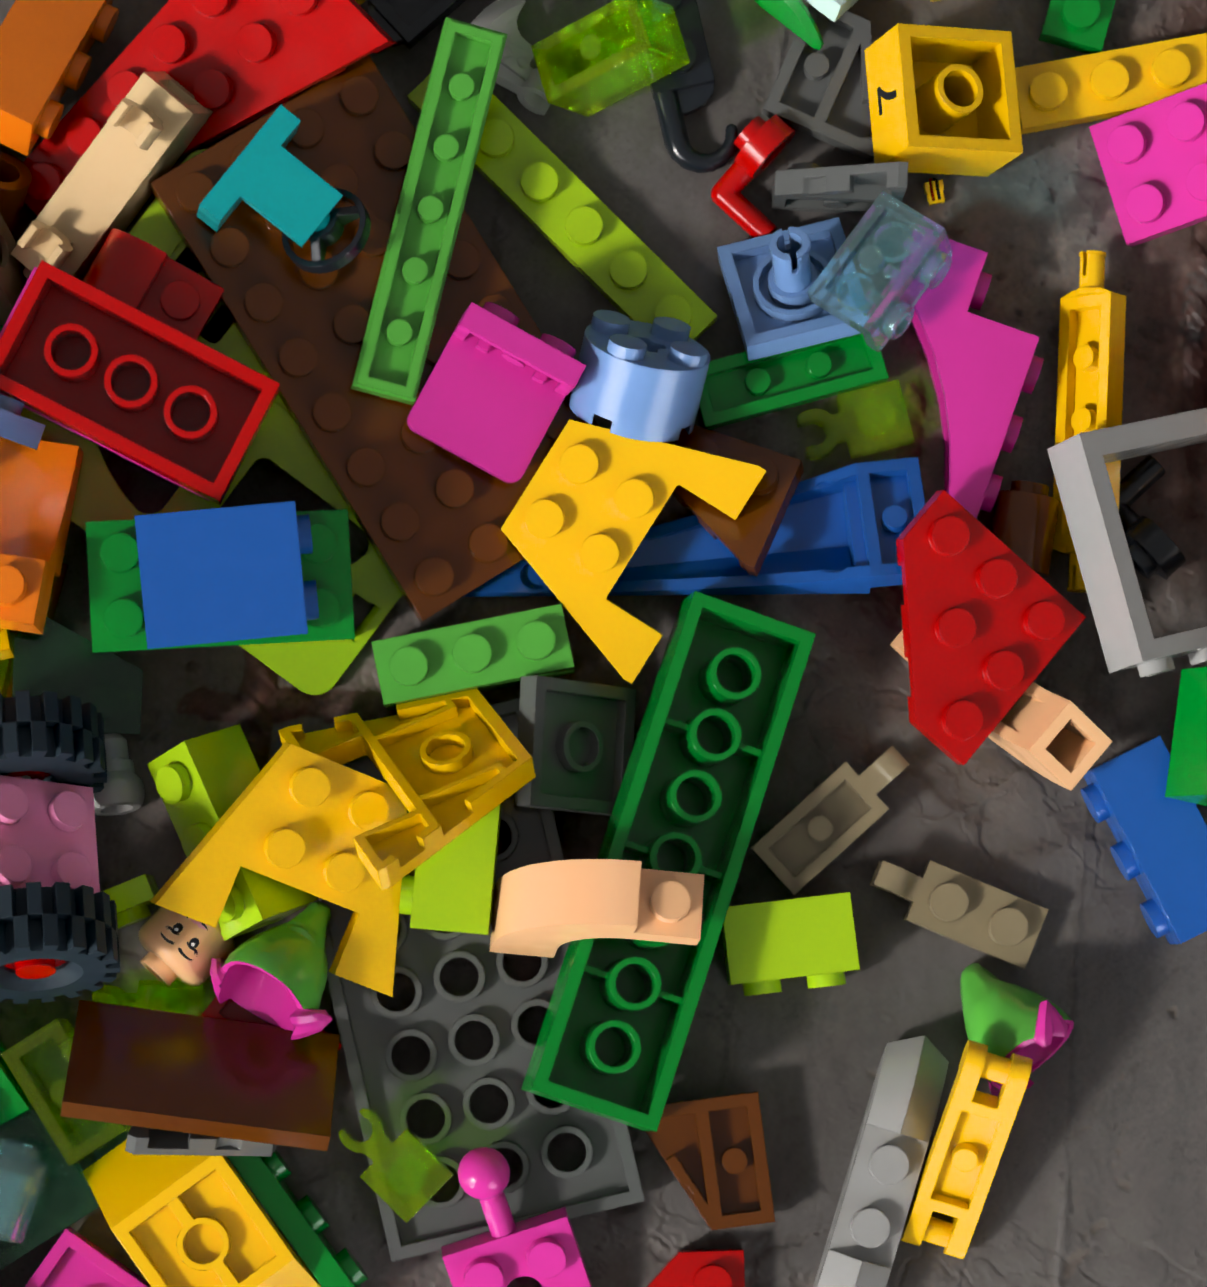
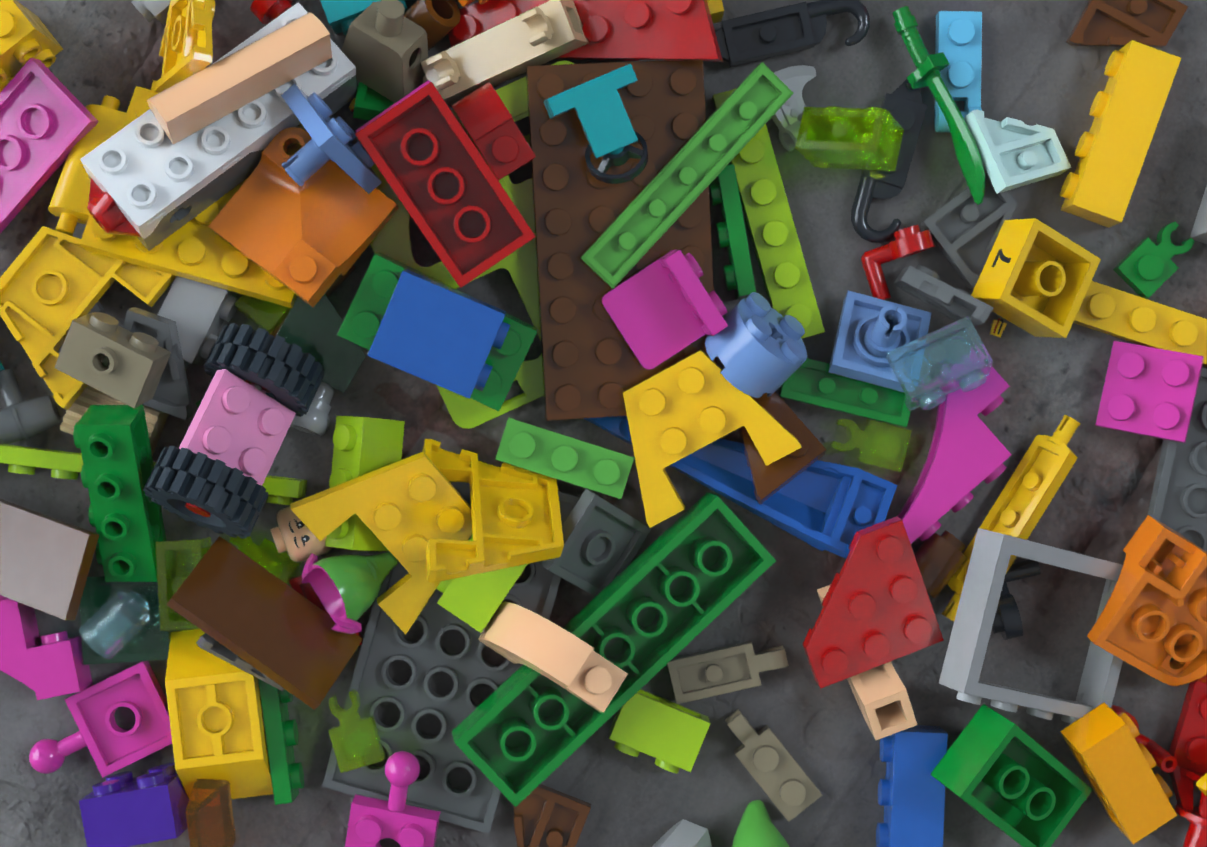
camera: 30 degrees right, 5 degrees up
(528, 253) = (732, 233): none -> green plate

